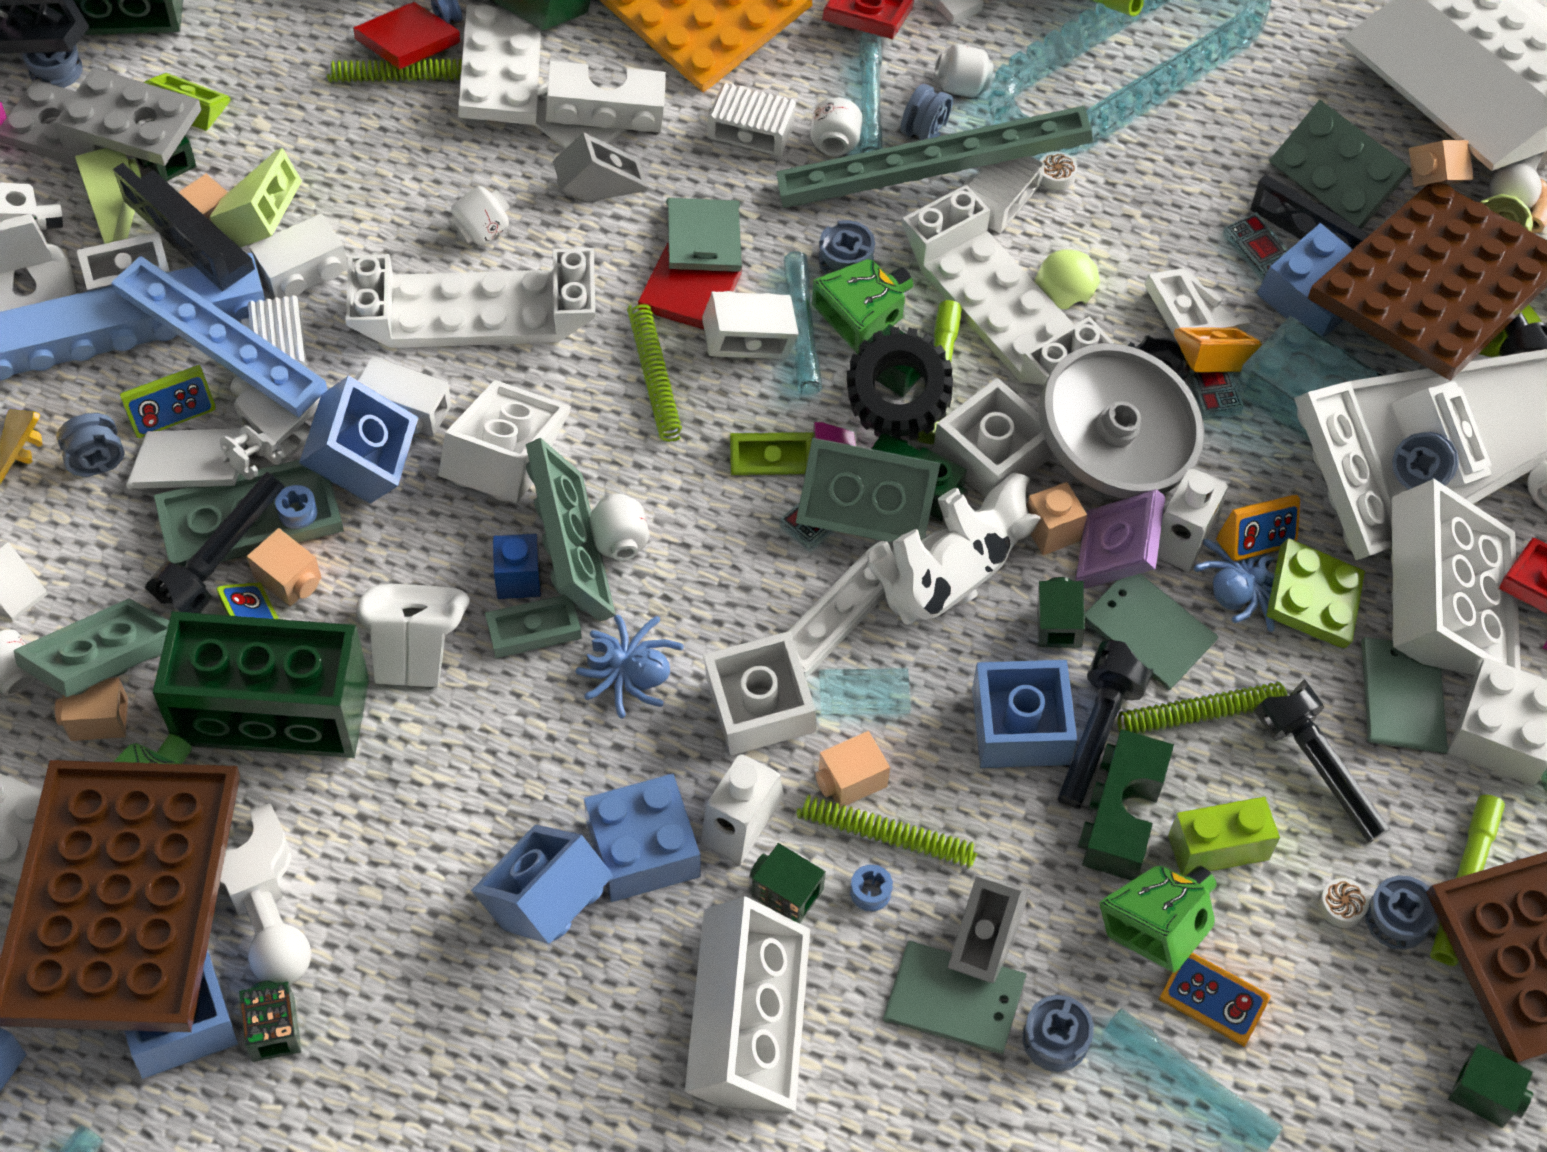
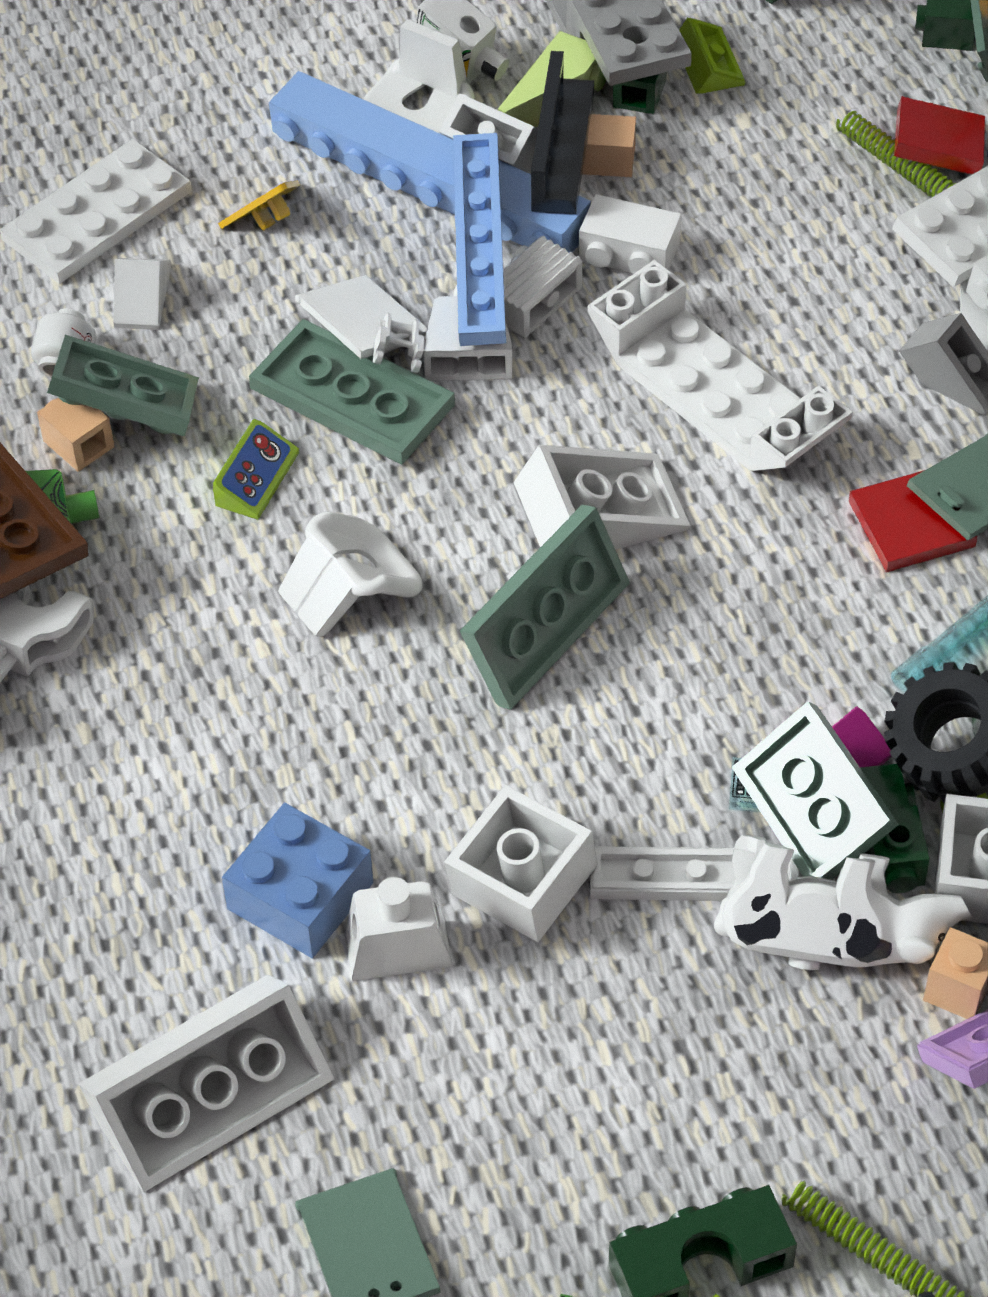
camera: 55 degrees right, 5 degrees down
(90, 444) = (304, 248): sand blue wheel -> none
(168, 401) = (402, 263): slope -> none
(185, 584) = (237, 395): black piece -> none
(258, 201) = (649, 167): yellowish green slope -> none
(262, 684) = (181, 507): dark green brick -> none
(285, 567) = (321, 449): light nougat brick -> none
(287, 514) = (373, 400): medium blue bush -> none
(359, 440) = (482, 400): medium blue brick -> none
(411, 390) = (566, 402): white brick -> none
(480, 215) = (809, 319): white head -> none
(516, 566) = (470, 590): blue brick -> none
(533, 625) = (433, 655): sand green plate -> none
(543, 883) = (176, 834): medium blue brick -> none
(618, 526) = (594, 643): white head -> none
(628, 664) = (466, 750): medium blue animal -> none
(669, 418) = (803, 546): lime piece -> none
(749, 325) = (909, 584): white brick -> none
(769, 453) = (786, 689): lime slope -> none
(786, 882) = (355, 1024): dark green brick -> none
(852, 770) = (519, 995): light nougat brick -> none
(864, 691) = (620, 953): clear light blue tile -> none
(873, 873) = (424, 1111): medium blue bush -> none
(961, 854) = (468, 1052): lime piece -> none
(988, 927) = (456, 1216): light grey slope -> none
(1024, 713) = (709, 1091): medium blue brick -> none
(1060, 613) = (855, 1049): dark green brick -> none
(1117, 678) = (830, 1150): black piece -> none
(1152, 627) = (931, 1148): sand green container -> none

